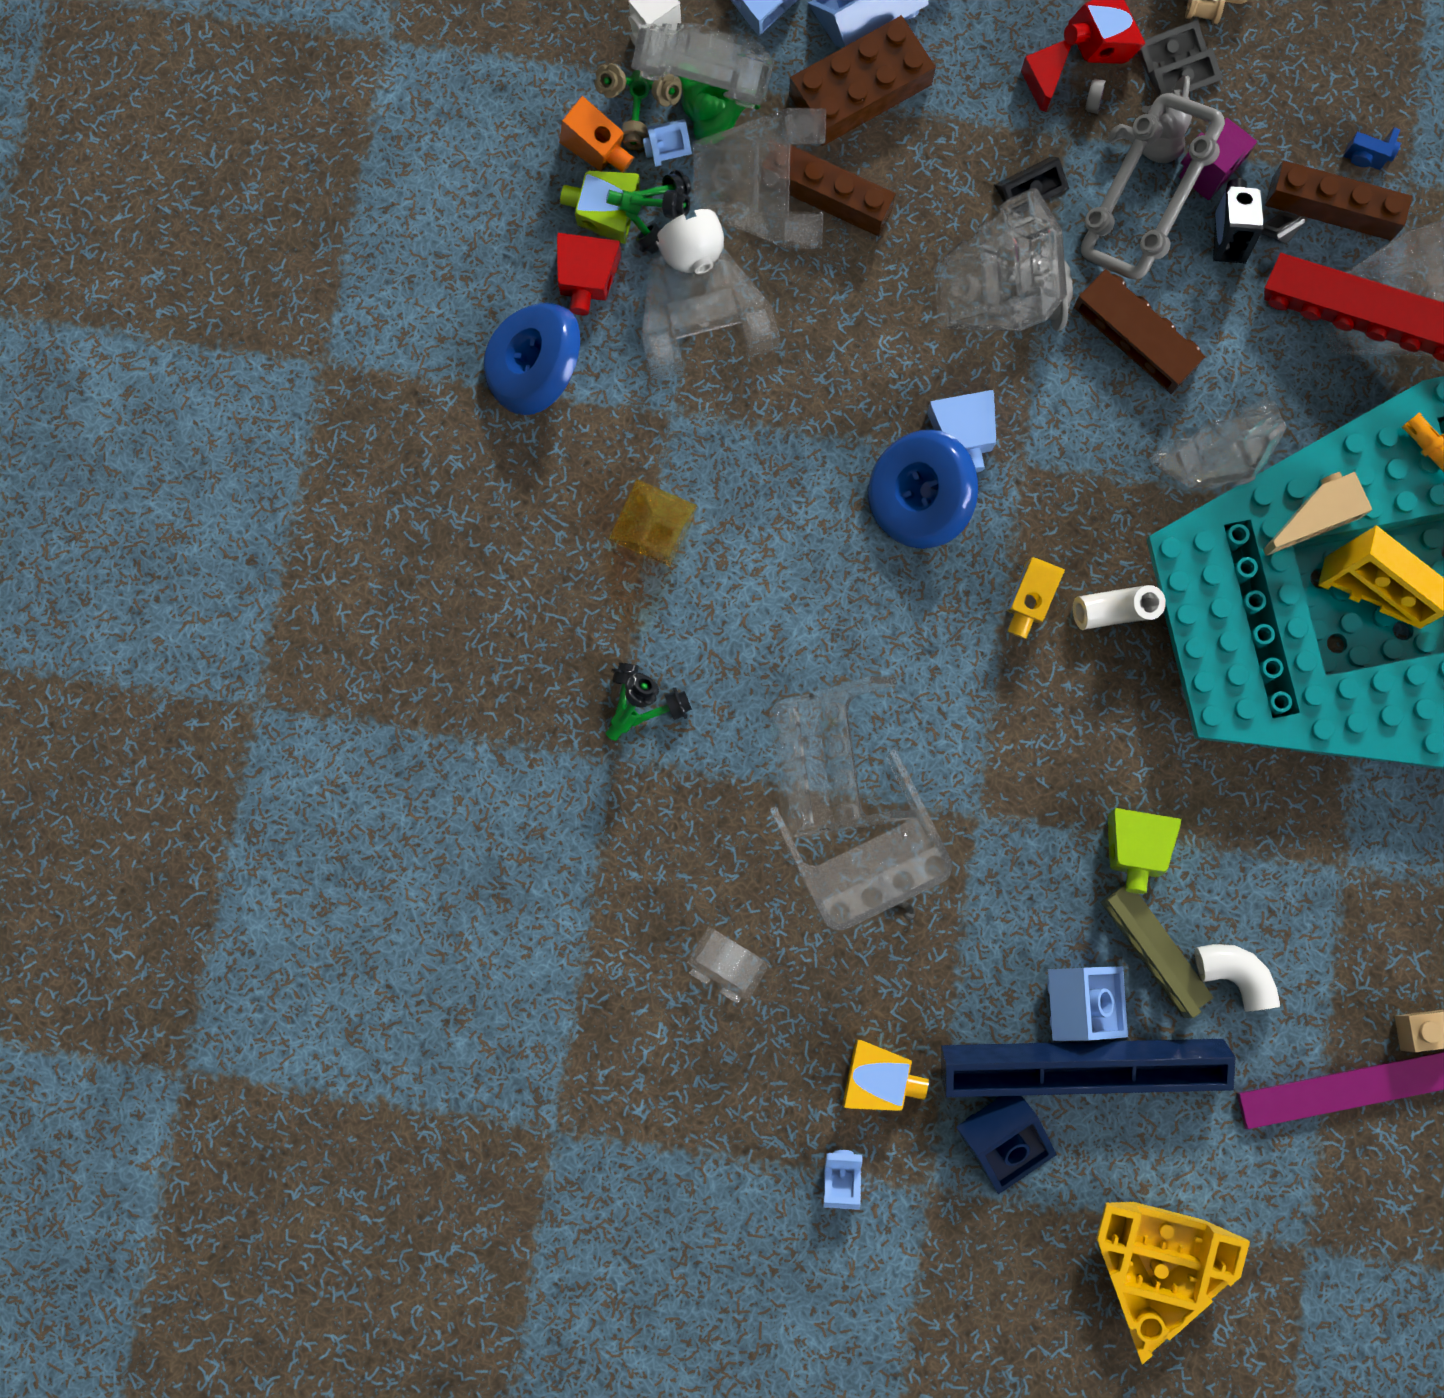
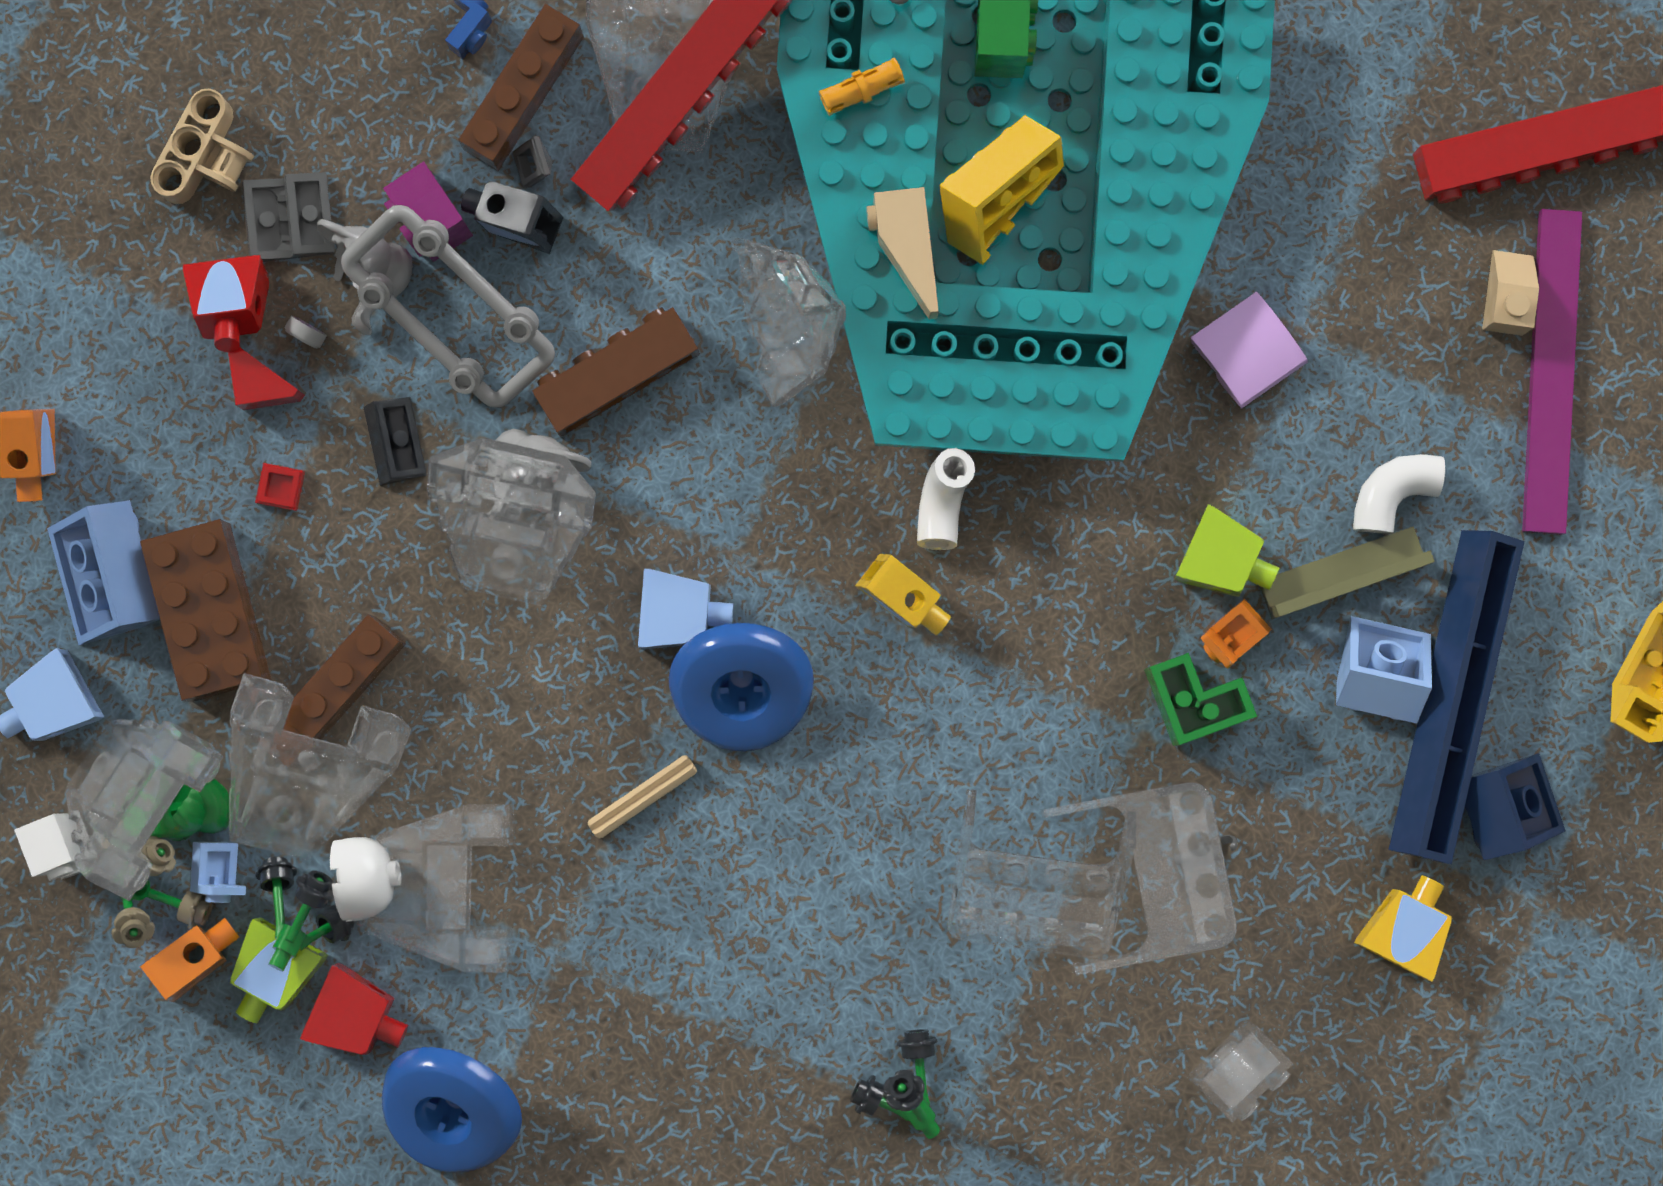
camera: 75 degrees left, 5 degrees up
(653, 522) = (690, 1015): clear yellow slope -> none
(812, 441) = (642, 796): none -> tan axle
(842, 1180) = (1509, 1004): light blue bracket -> none
(971, 112) = (280, 487): none -> red tile
(1009, 856) = (1190, 710): none -> green brick
(1080, 871) = (1234, 634): none -> orange bracket
(1316, 824) = (1249, 349): none -> lavender slope

